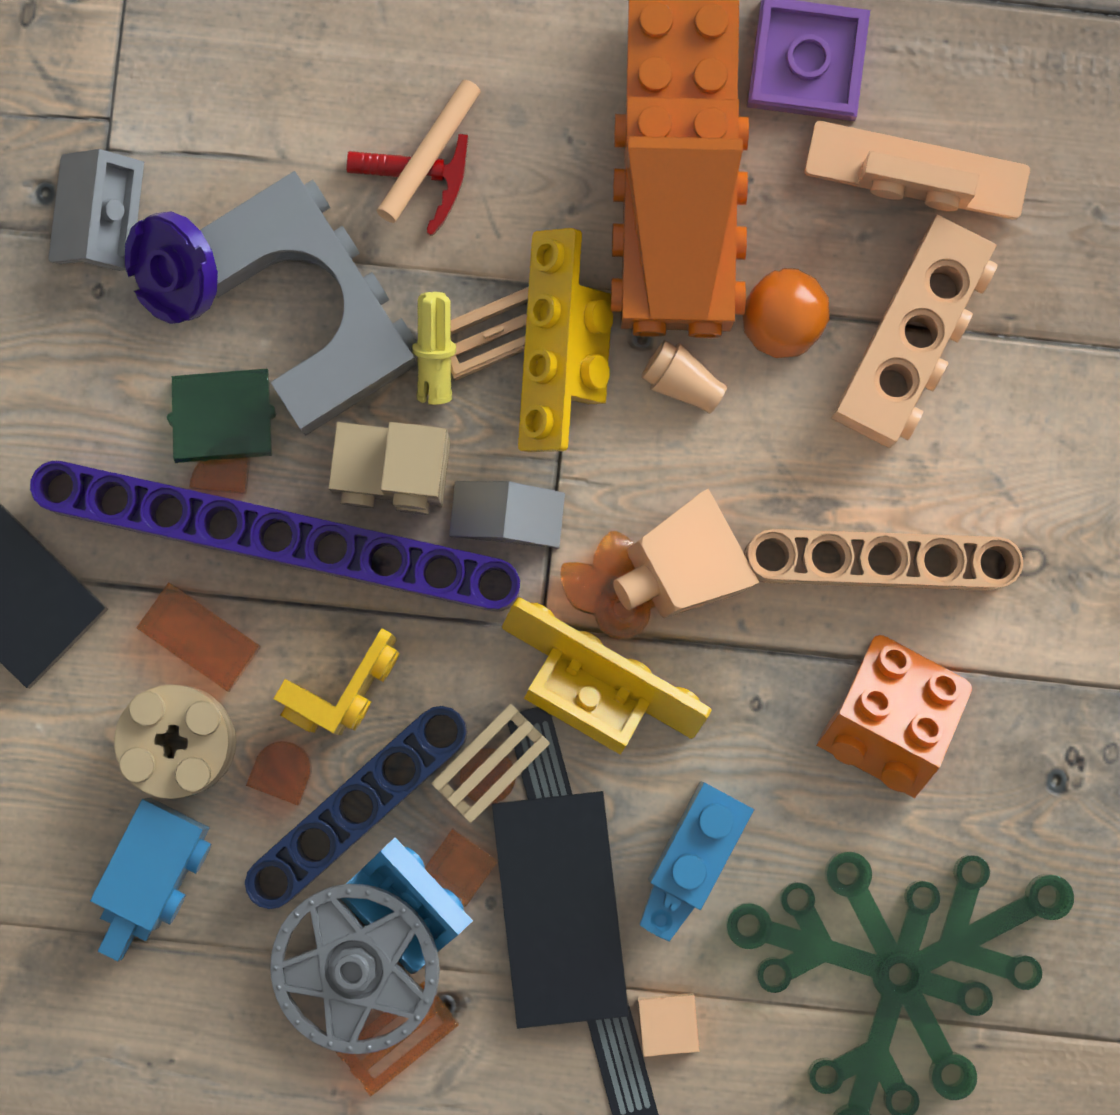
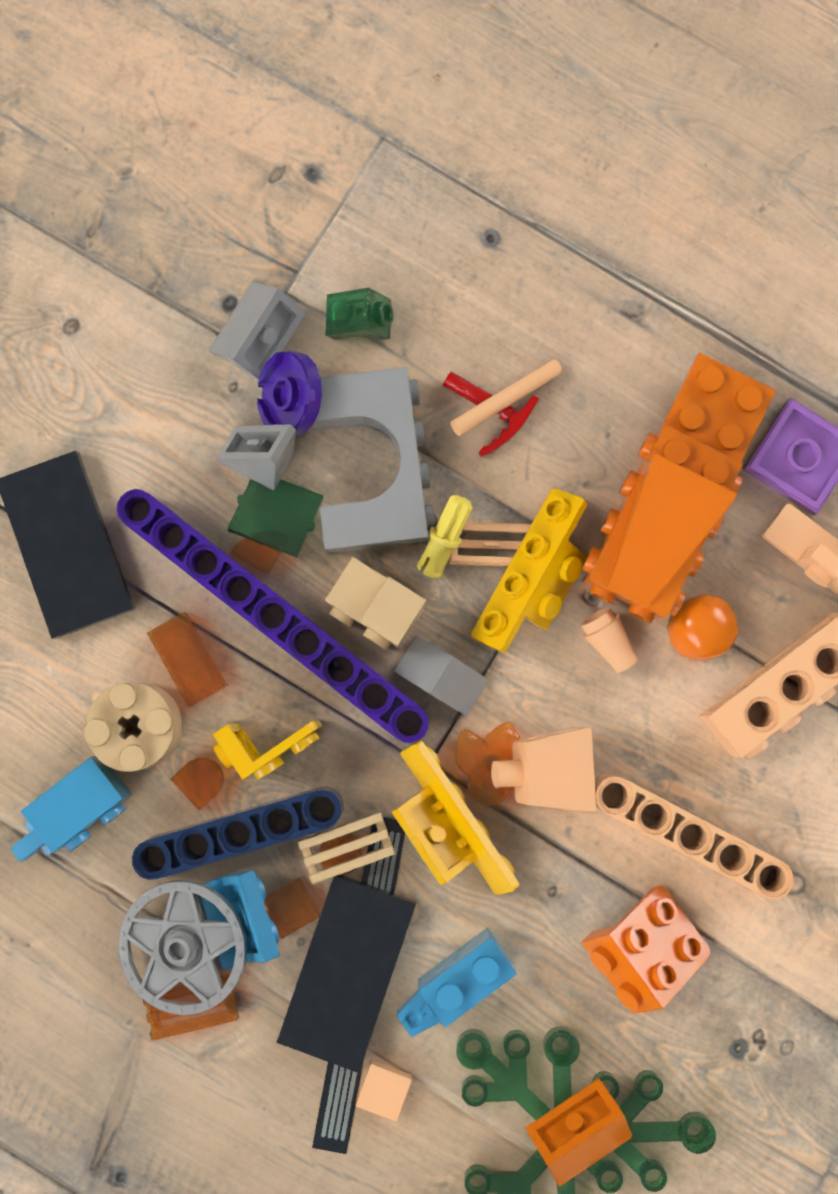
camera: 30 degrees right, 0 degrees up
(168, 352) = (259, 452): none -> light grey slope
(207, 135) = (358, 314): none -> clear green bracket
(914, 957) = (579, 1132): none -> orange panel

